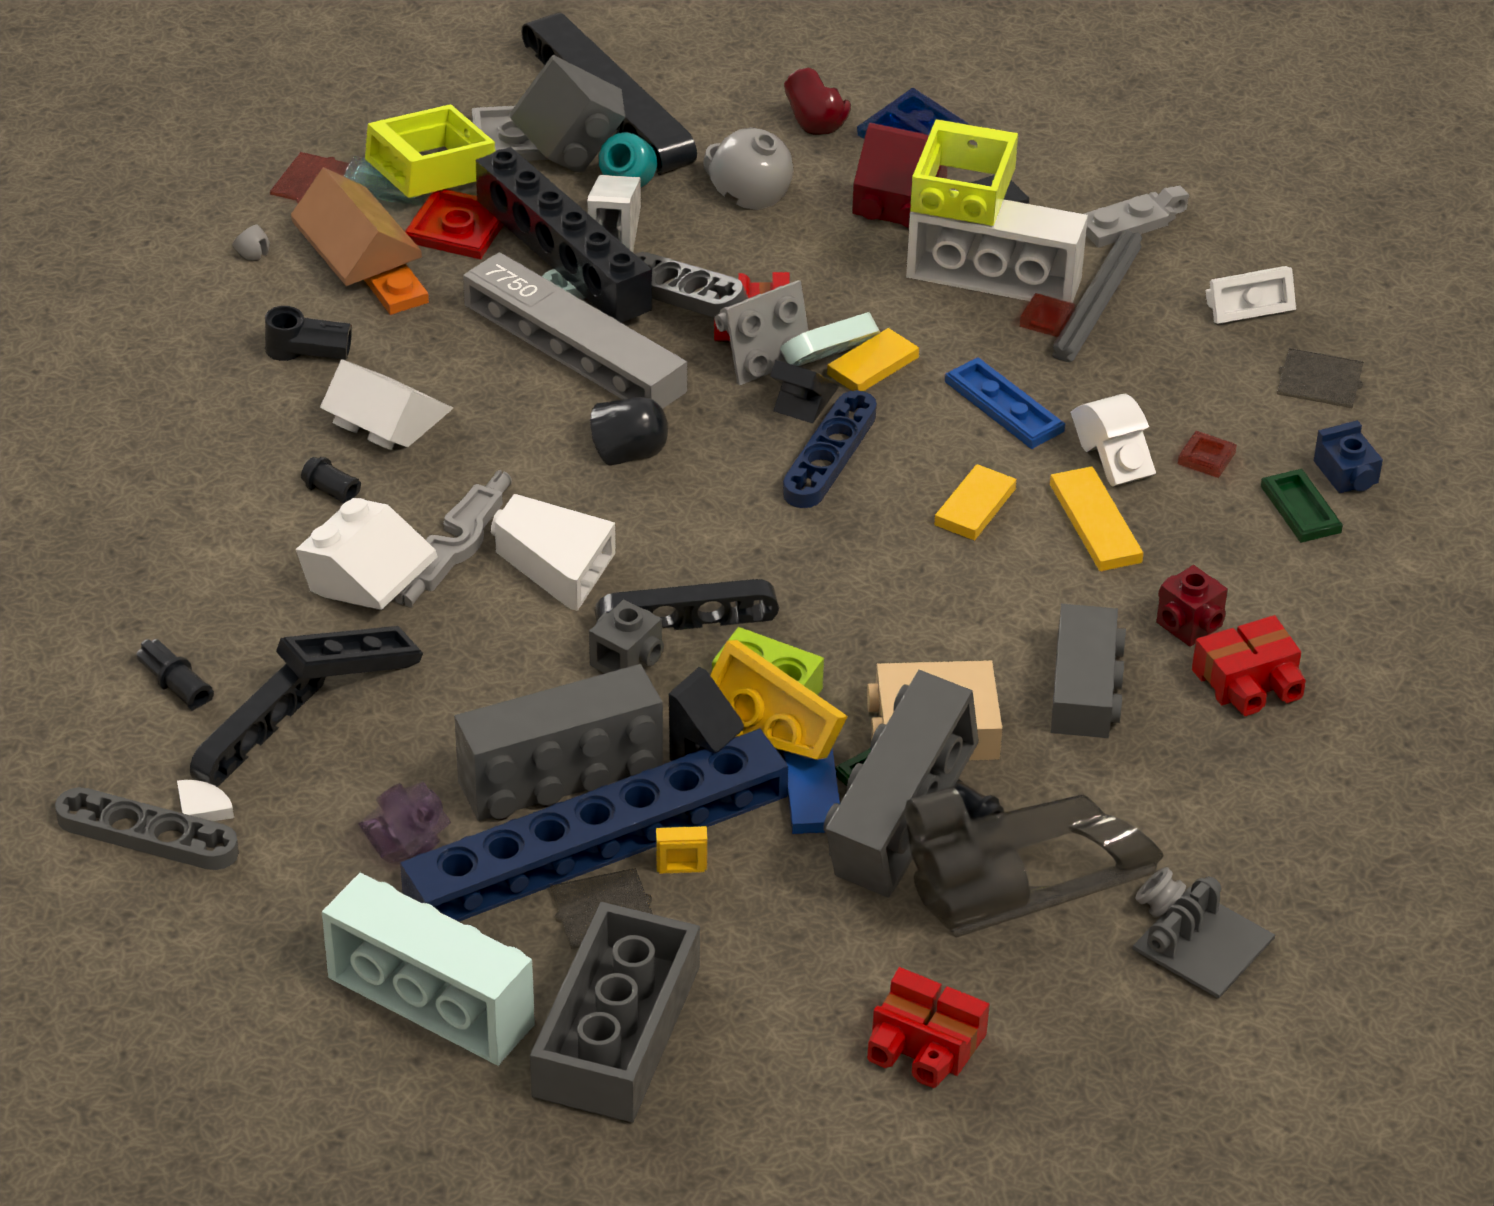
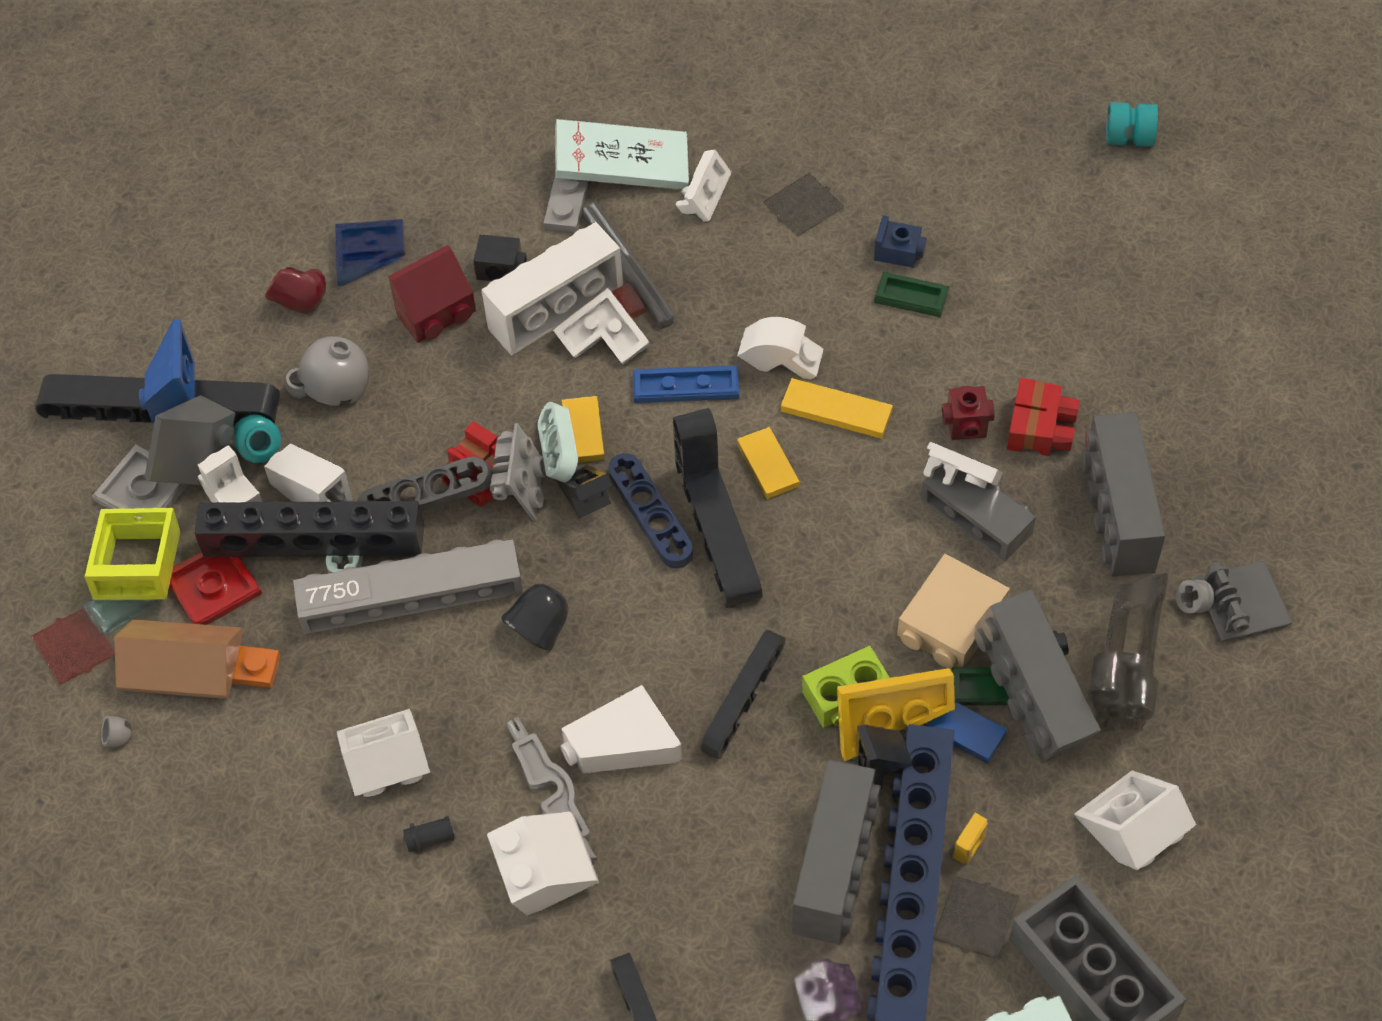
camera: 50 degrees left, 15 degrees up
(293, 335) = (262, 756): black piece -> none
(349, 652) = (633, 930): black tile -> none
(561, 155) = (224, 479): none -> white brick
(625, 638) = (754, 749): dark grey brick -> none
(631, 57) = (170, 374): none -> blue slope
(829, 973) = (1137, 818): none -> white slope
(868, 487) = (713, 512): none -> black beam
(927, 1026) = (1221, 795): red hips -> none
(951, 147) = (503, 230): neon yellow window -> none
(1003, 306) = (604, 320): none -> white plate
(1097, 606) = (976, 471): none -> white plate
(1207, 454) = (826, 310): clear red tile -> none
(1214, 216) = (621, 154): none -> light aqua tile
(1216, 760) = (1123, 494): none -> dark grey brick

